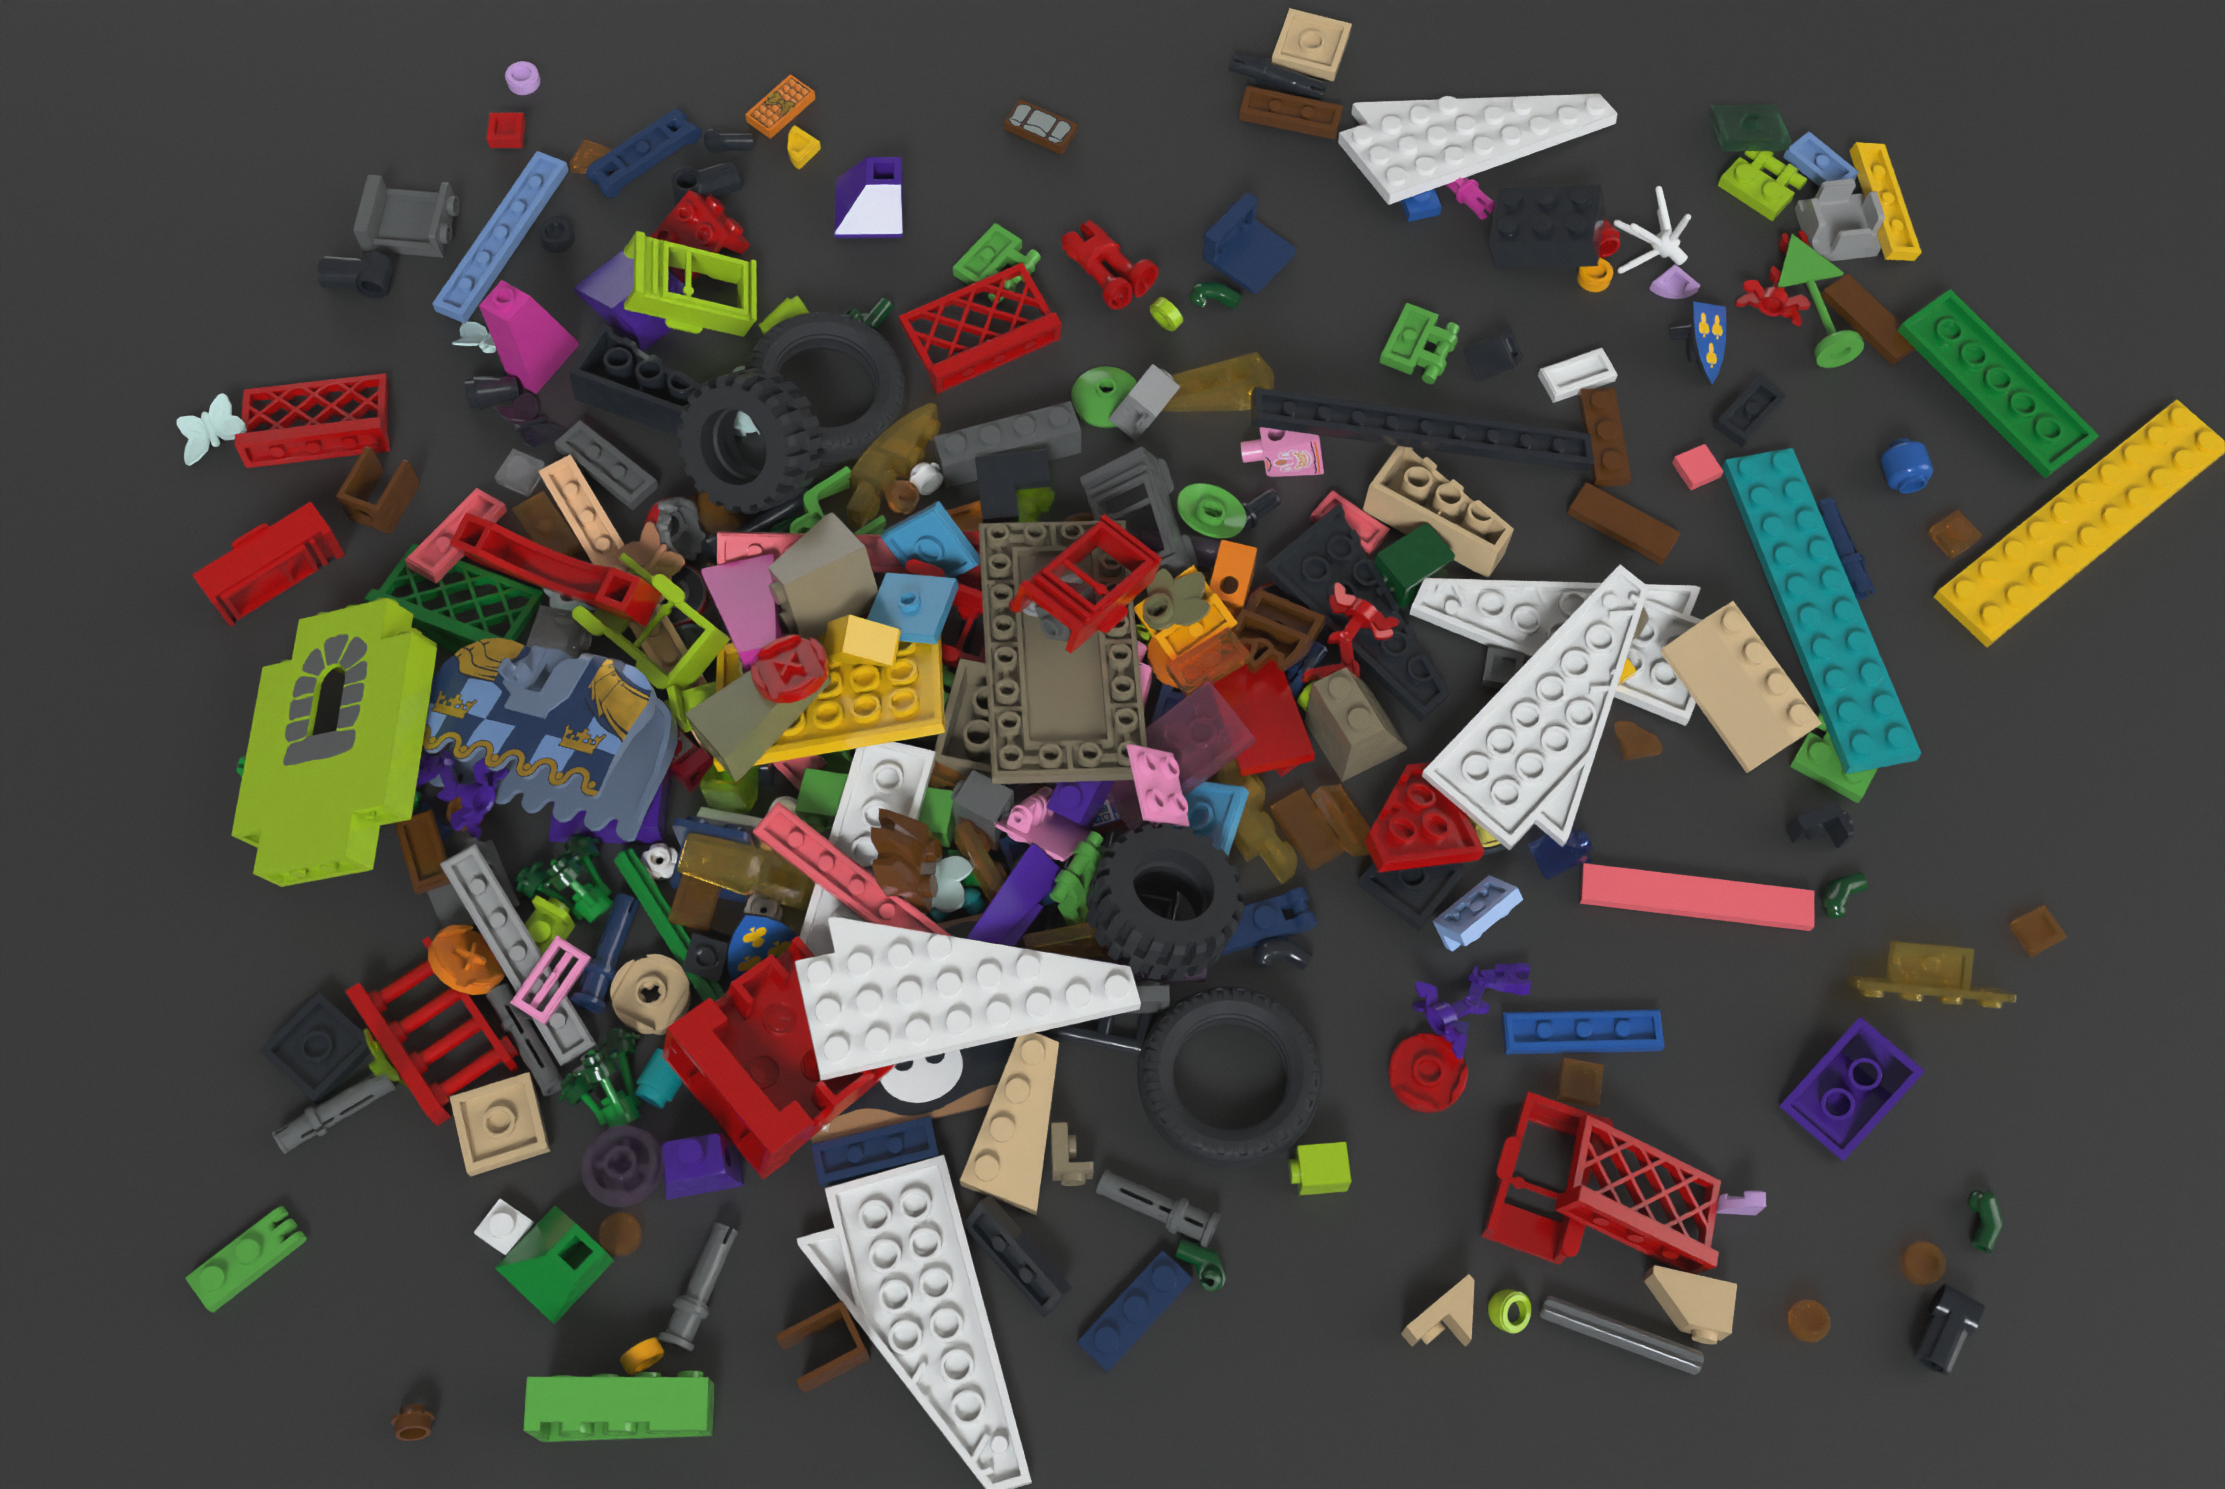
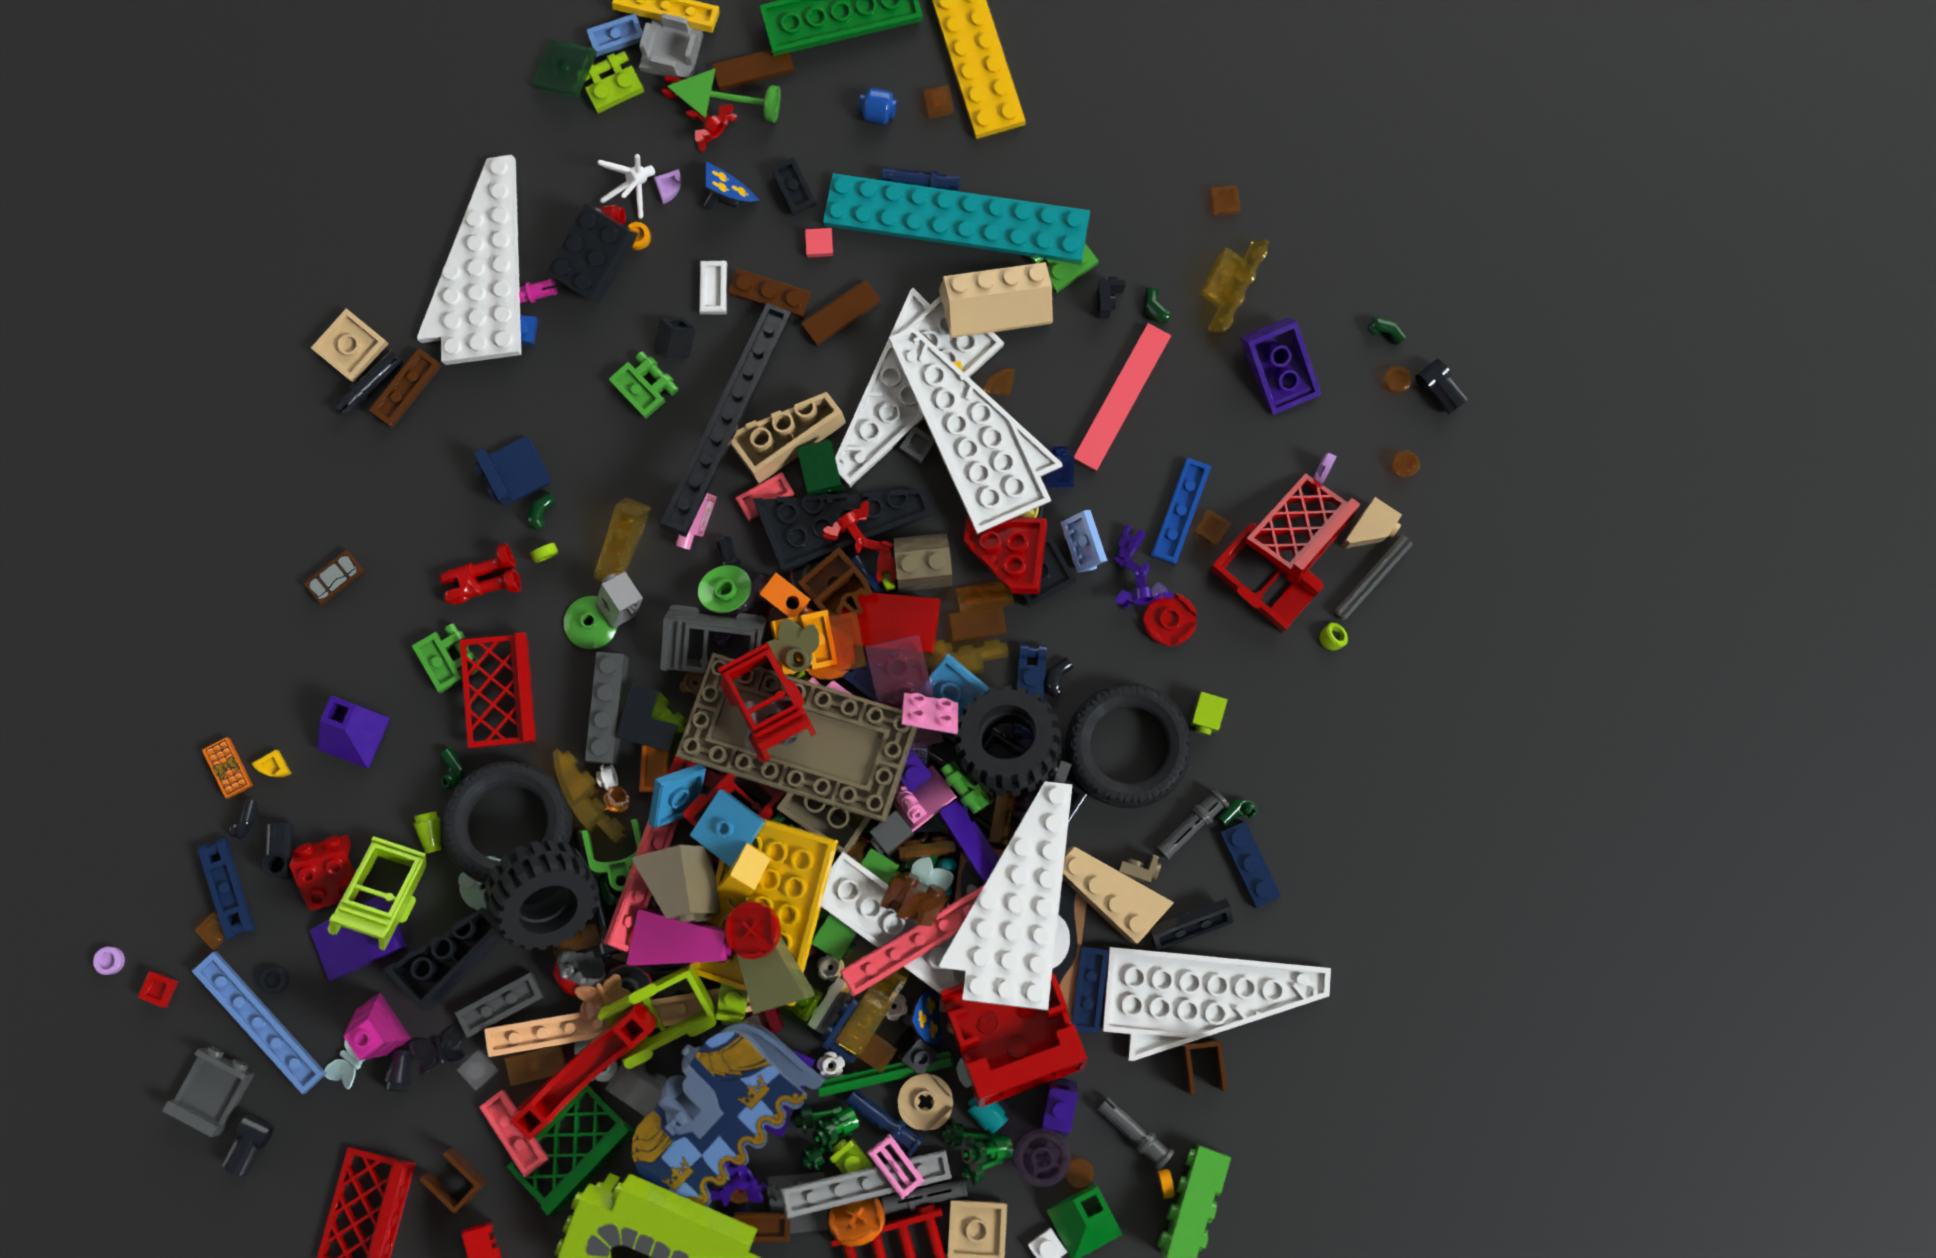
camera: 70 degrees left, 15 degrees up
(1453, 1308) = (1321, 671): tan slope -> none

